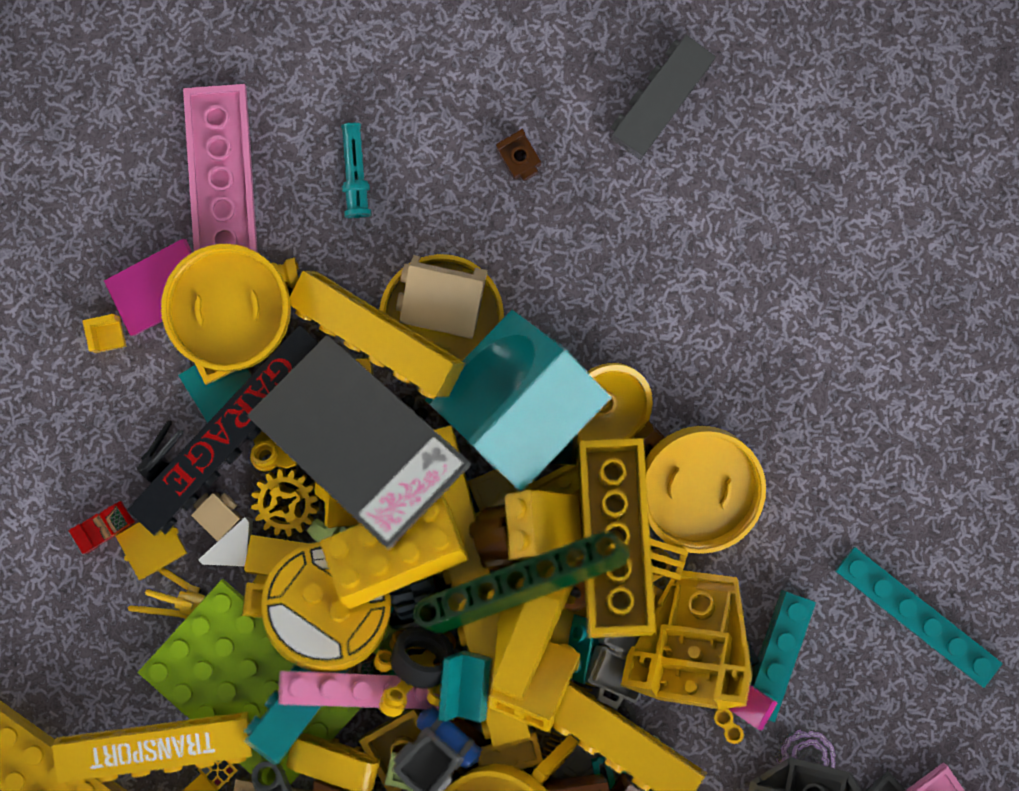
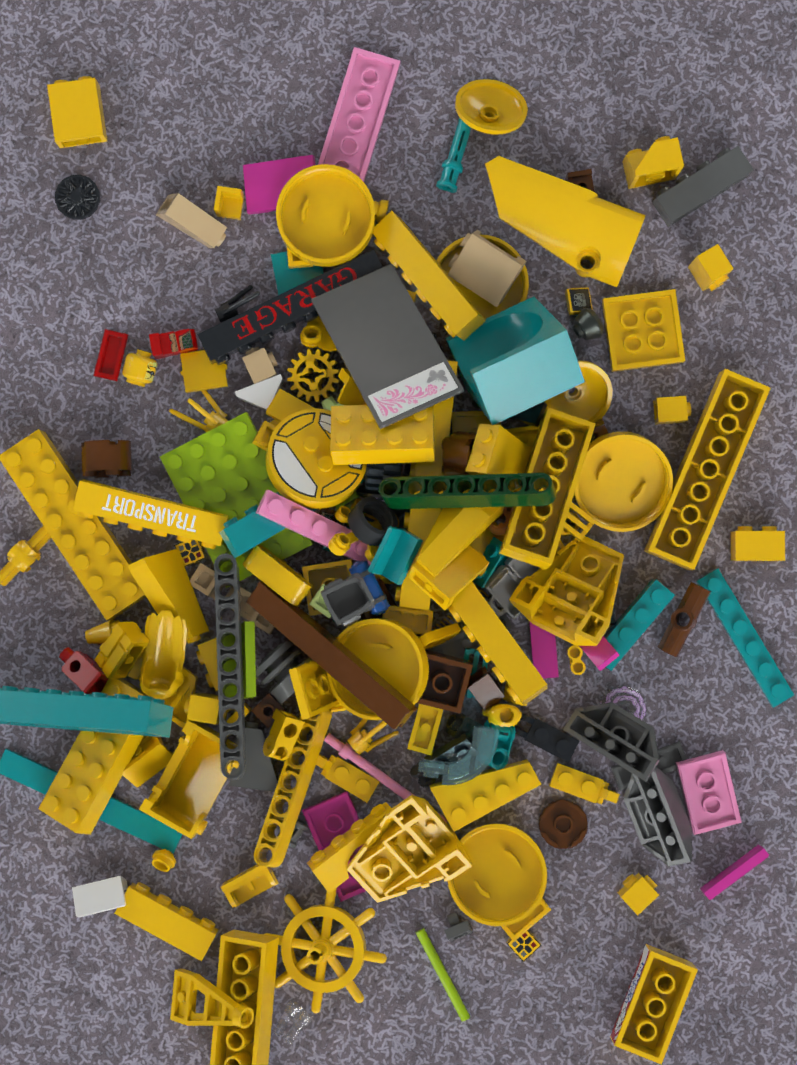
camera: 25 degrees right, 0 degrees up
(32, 570) = (111, 355): none -> red tile
(68, 372) = (192, 220): none -> tan slope
(73, 573) = (139, 368): none -> yellow head
(74, 700) = (106, 458): none -> reddish brown brick
(374, 99) = (491, 106): none -> yellow dish
(513, 201) = (565, 219): none -> yellow panel
(567, 290) = (577, 300): none -> slope
(589, 316) = (587, 325): none -> pearl dark grey cone
(595, 95) = (653, 166): none -> yellow slope
(658, 296) = (643, 330): none -> yellow plate
(687, 729) = (543, 651): none -> dark pink tile
(710, 194) = (711, 268): none -> yellow brick
(728, 379) = (671, 410): none -> yellow brick
(797, 436) = (707, 469): none -> yellow brick
(836, 644) = (676, 634): none -> reddish brown piece
(891, 502) = (757, 545): none -> yellow brick

